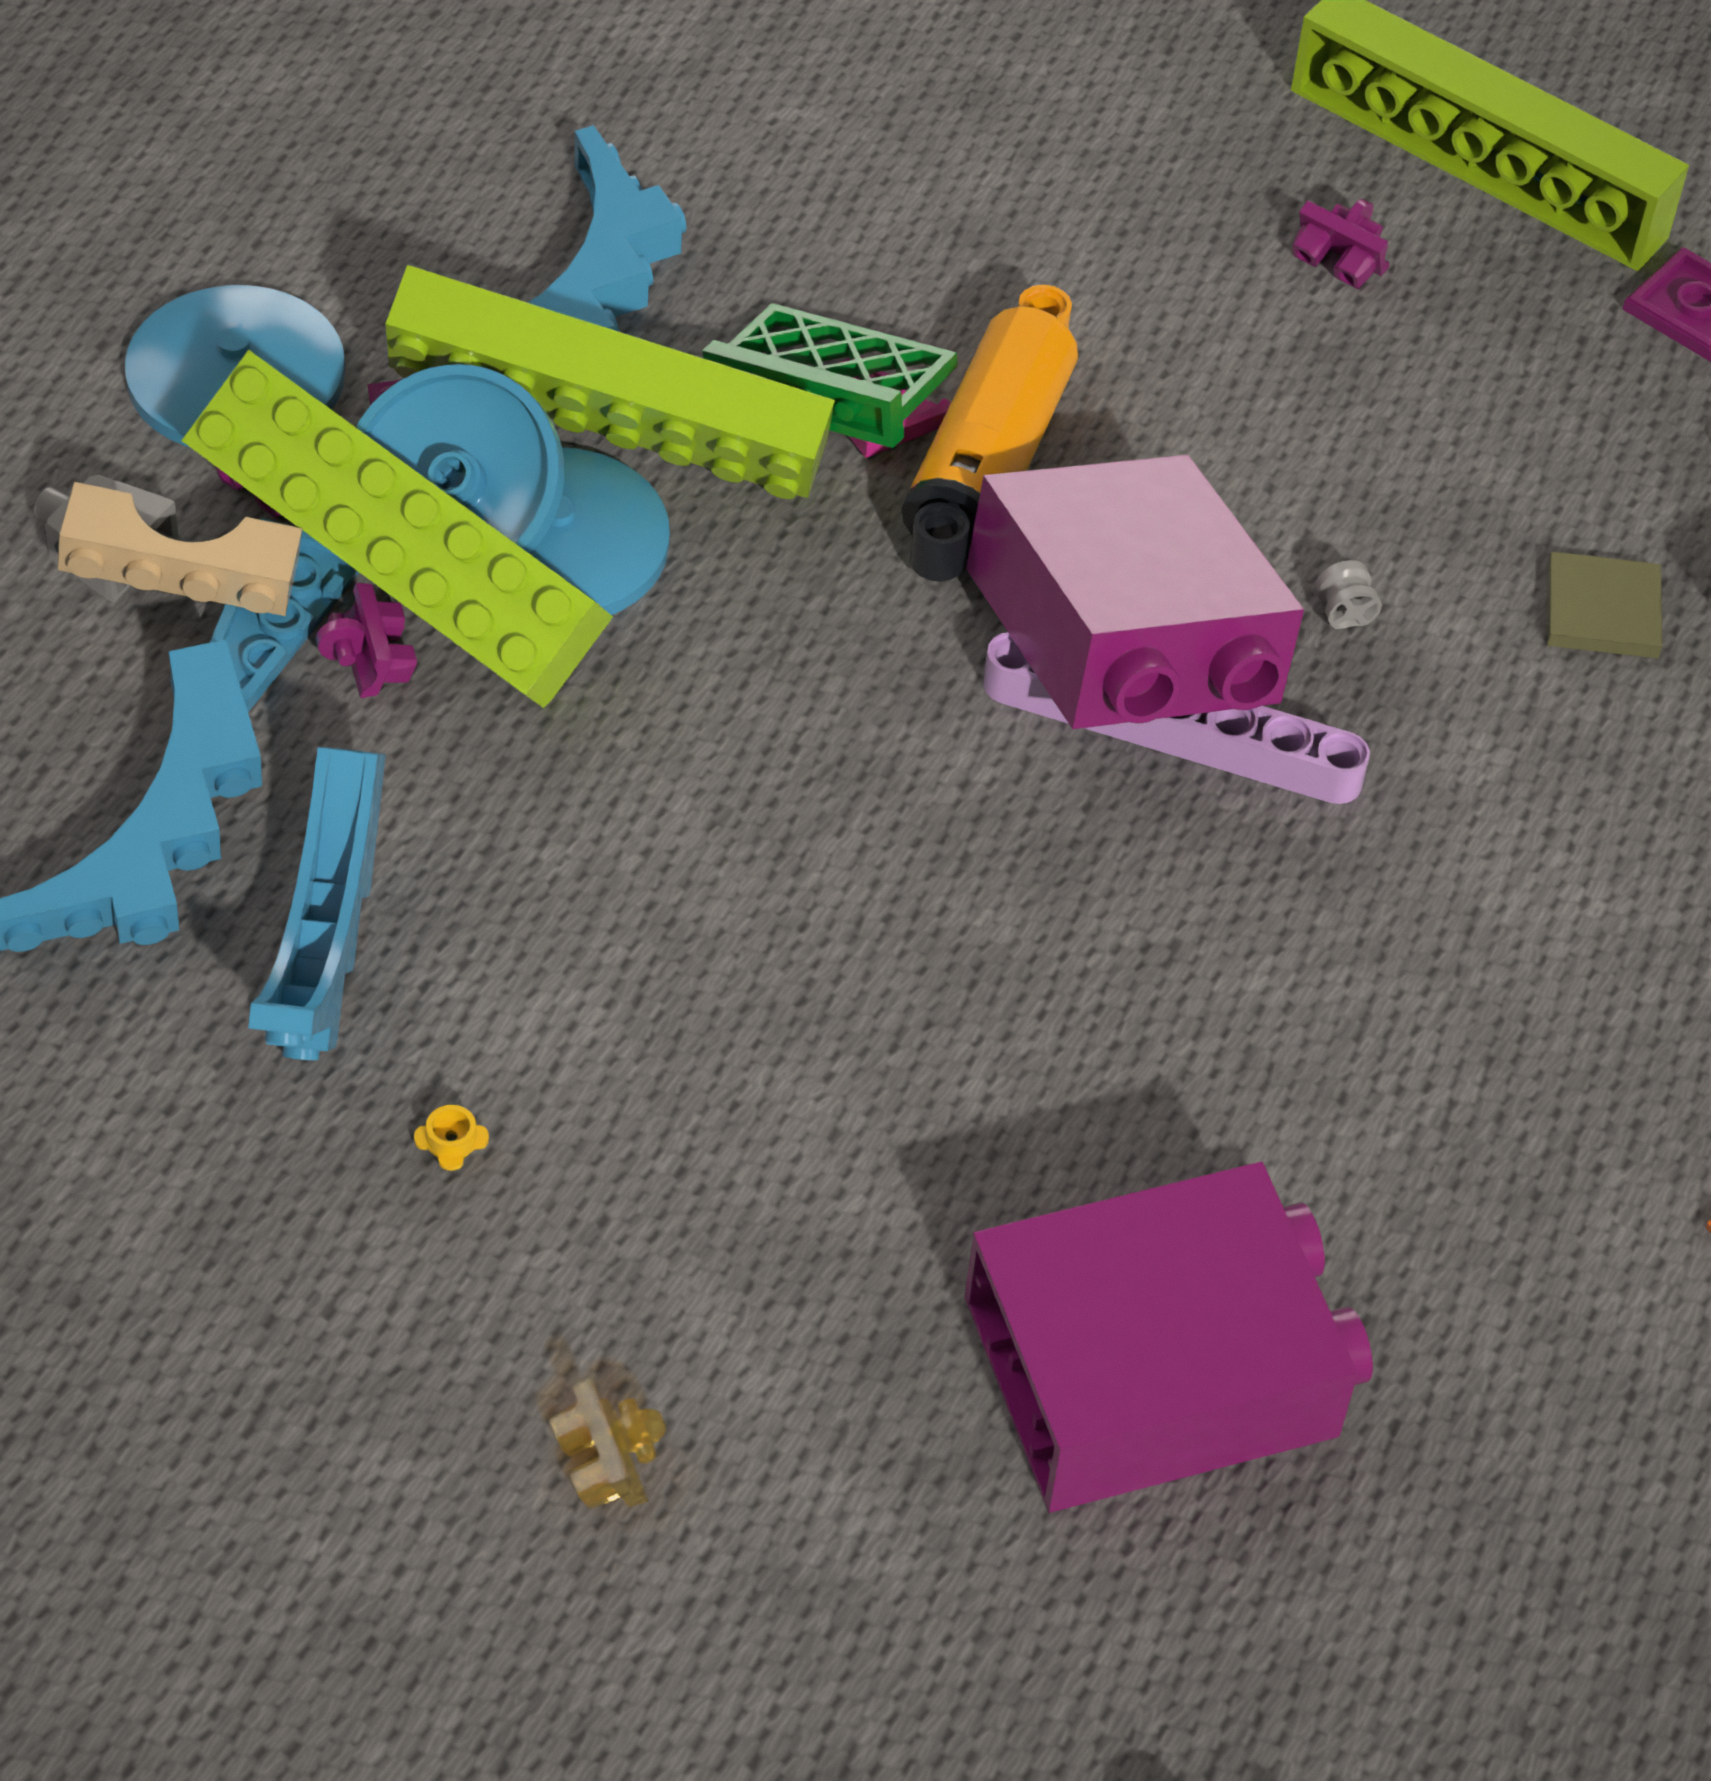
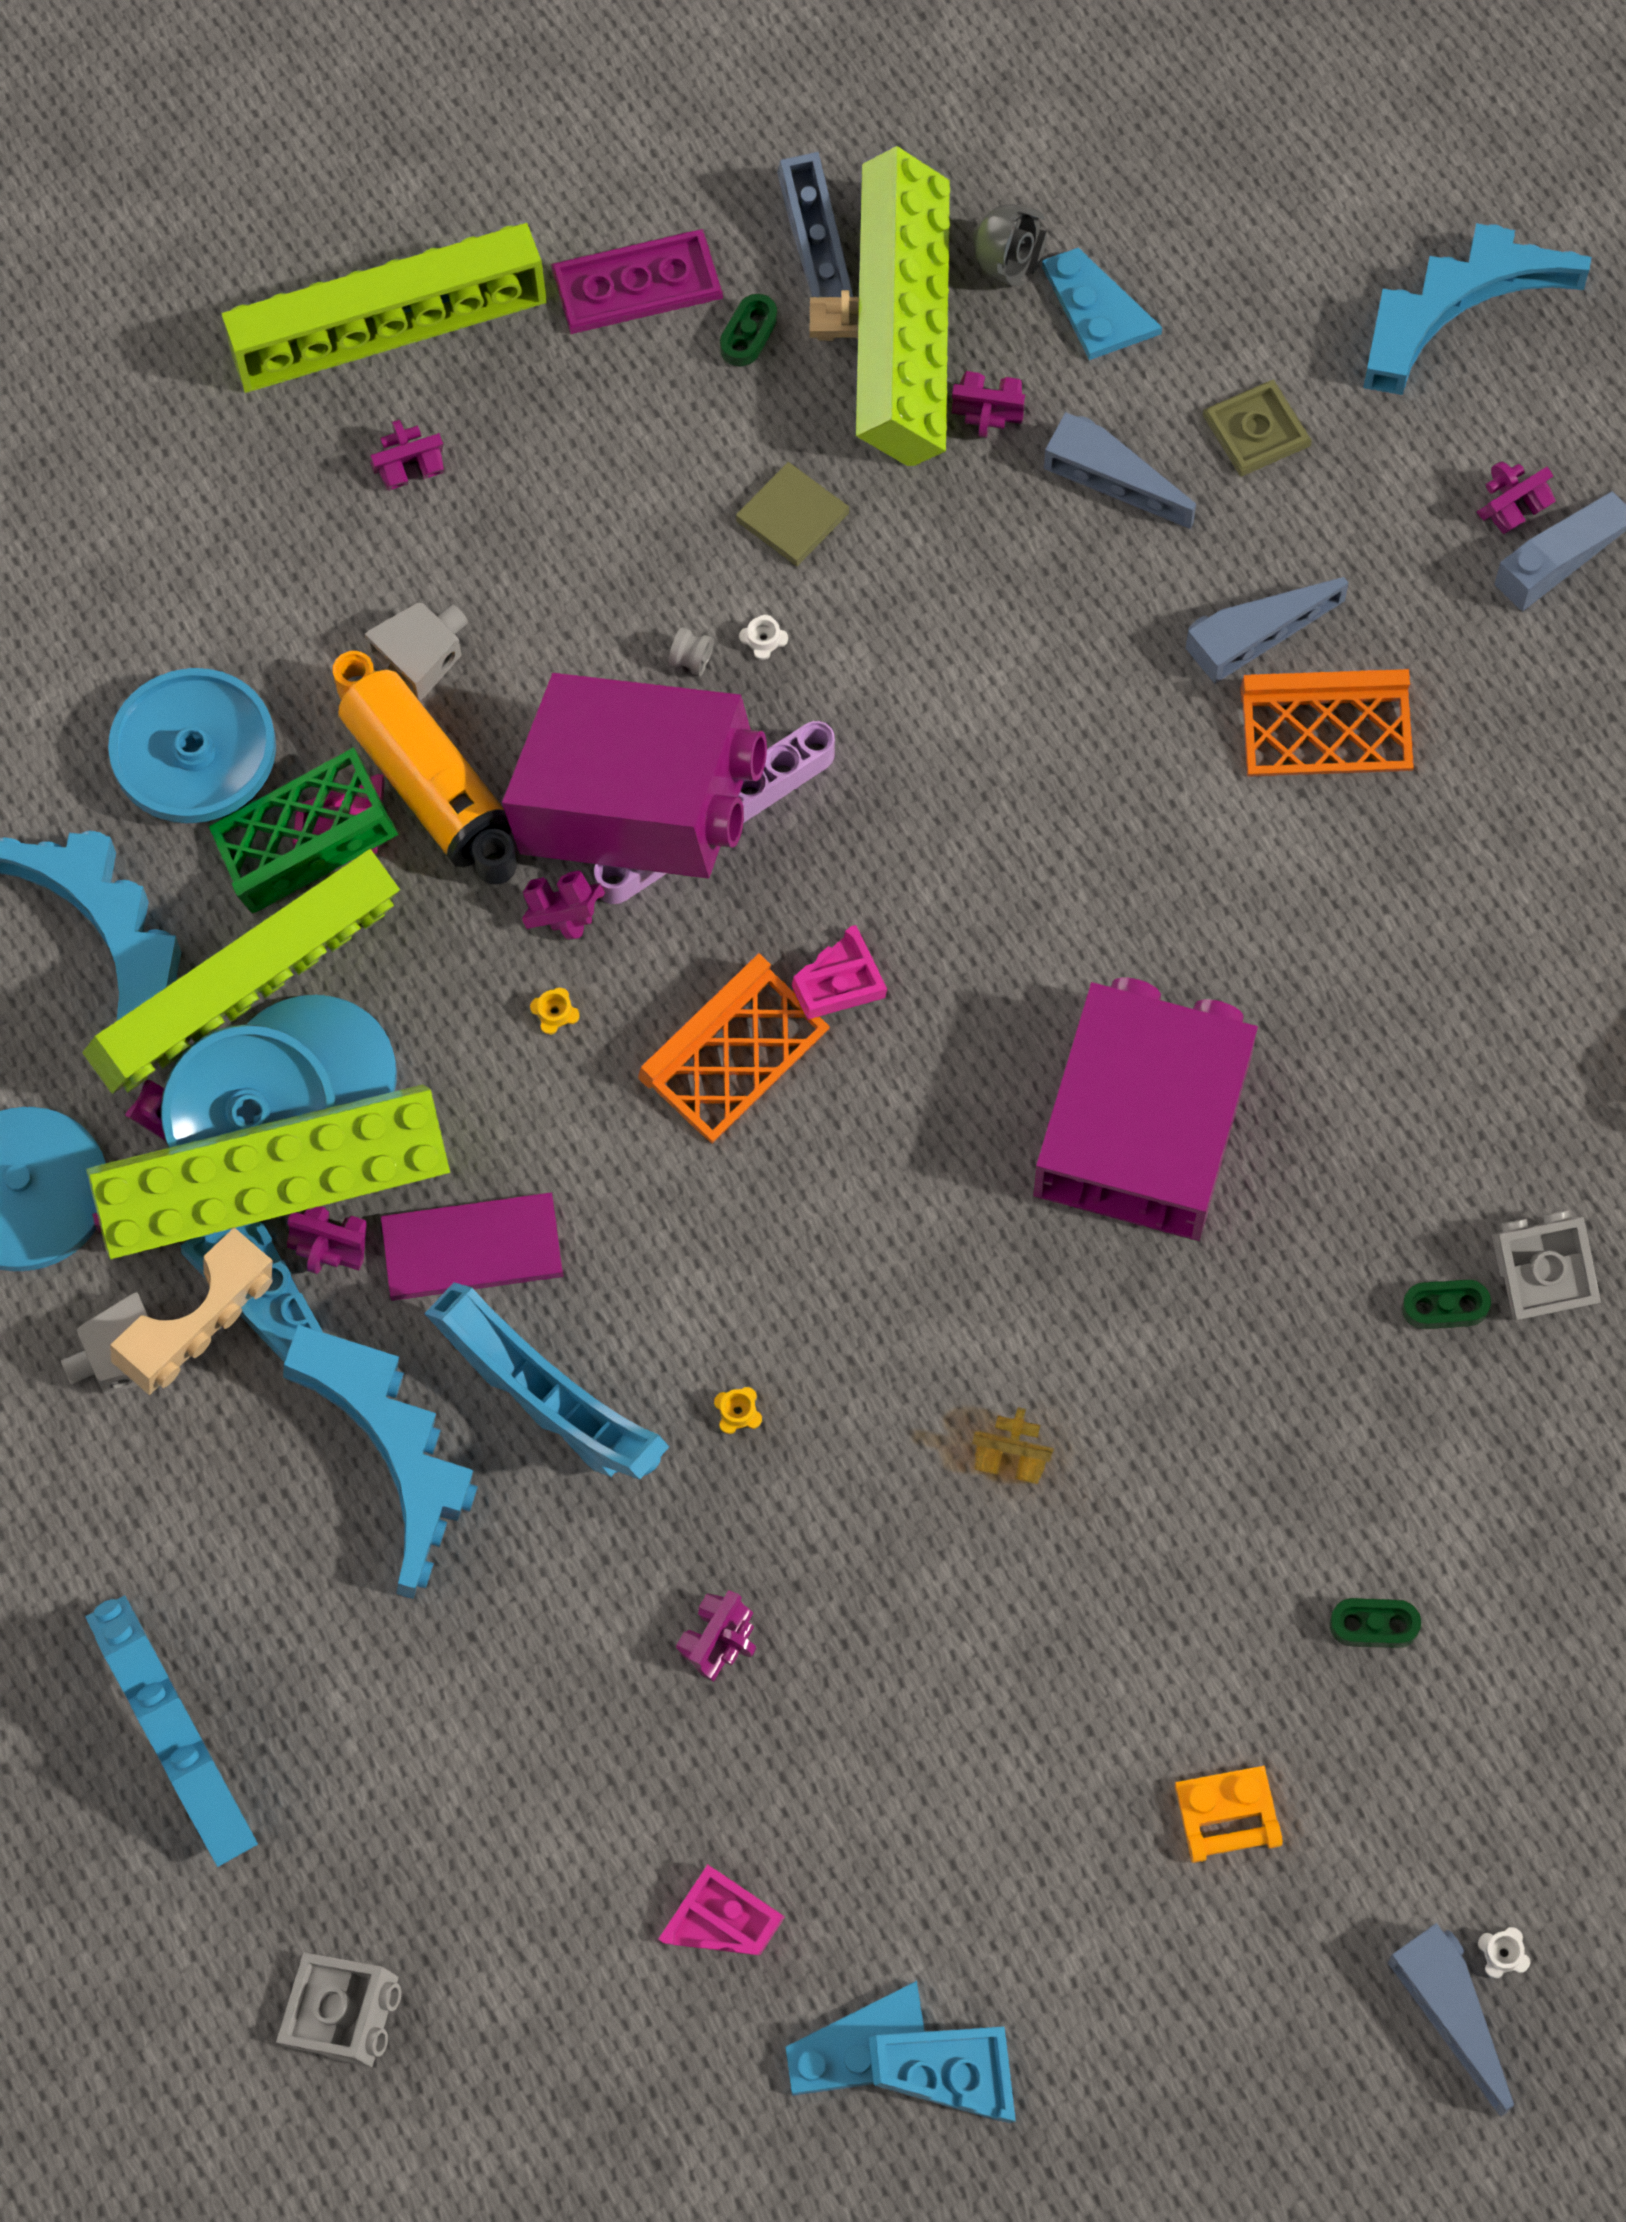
camera: 50 degrees left, 15 degrees up
(143, 1265) = (723, 1637): none -> magenta hips
(467, 780) = (471, 1246): none -> magenta tile
(816, 691) = (552, 999): none -> yellow plate
(846, 234) = (192, 745): none -> dark azure dish
(898, 843) = (706, 1024): none -> orange fence
(937, 630) = (564, 909): none -> magenta hips
(1071, 942) = (839, 978): none -> dark pink wing
(1133, 361) = (418, 645): none -> light grey torso
(1431, 642) = (763, 626): none -> white plate

